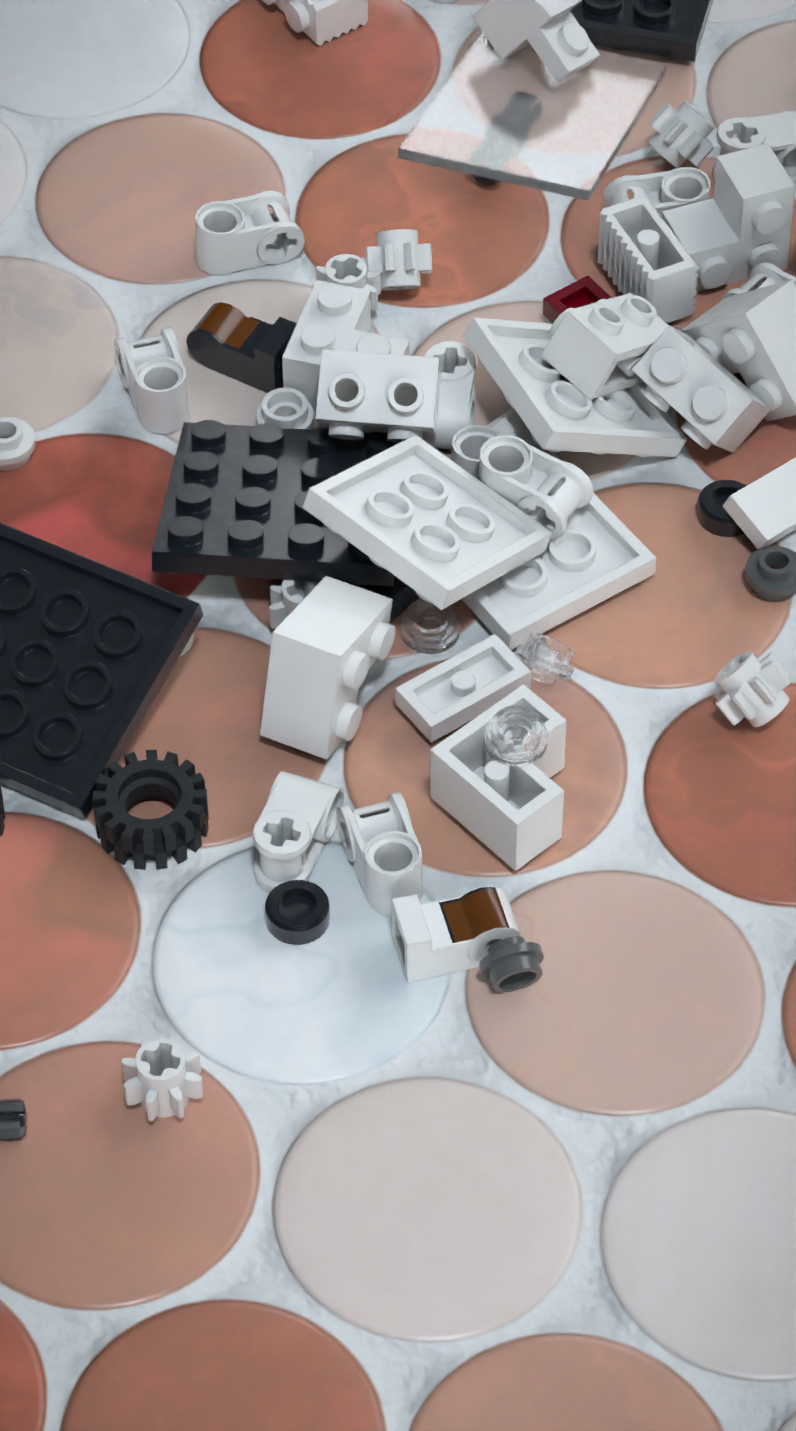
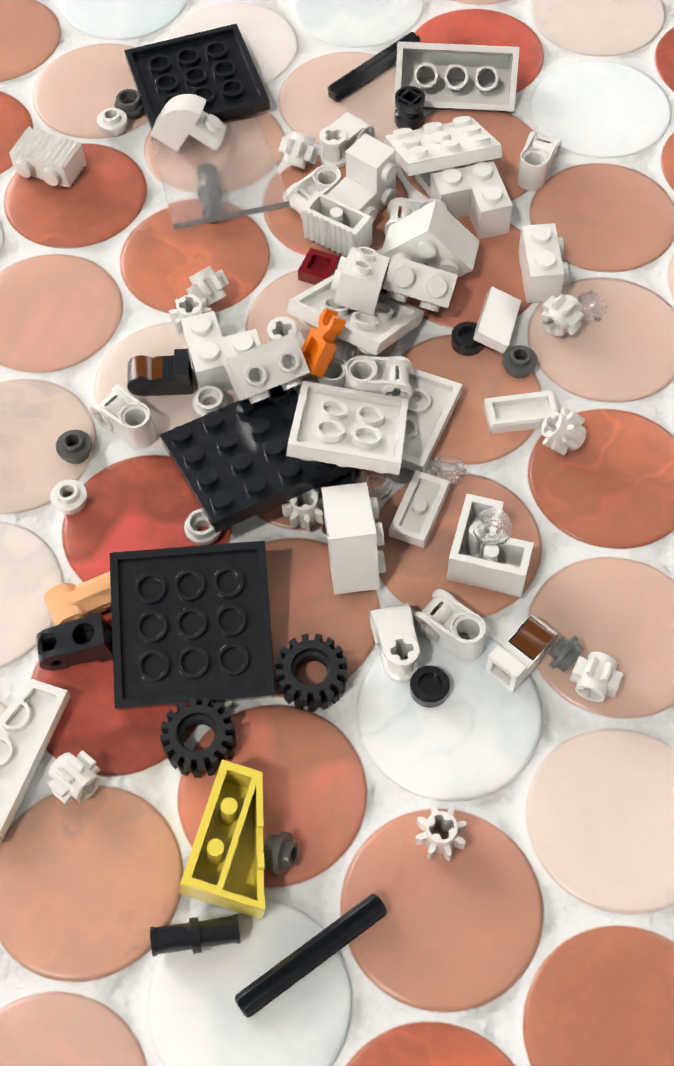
camera: 30 degrees left, 10 degrees up
(61, 384) = (77, 453): none -> dark grey plate
(138, 564) = (193, 523): none -> white plate
(240, 234) = (112, 311): white piece -> none
(470, 403) = (319, 345): none -> orange plate
(527, 1011) = (596, 676): none -> white gear
(715, 636) = (518, 411): none -> white tile

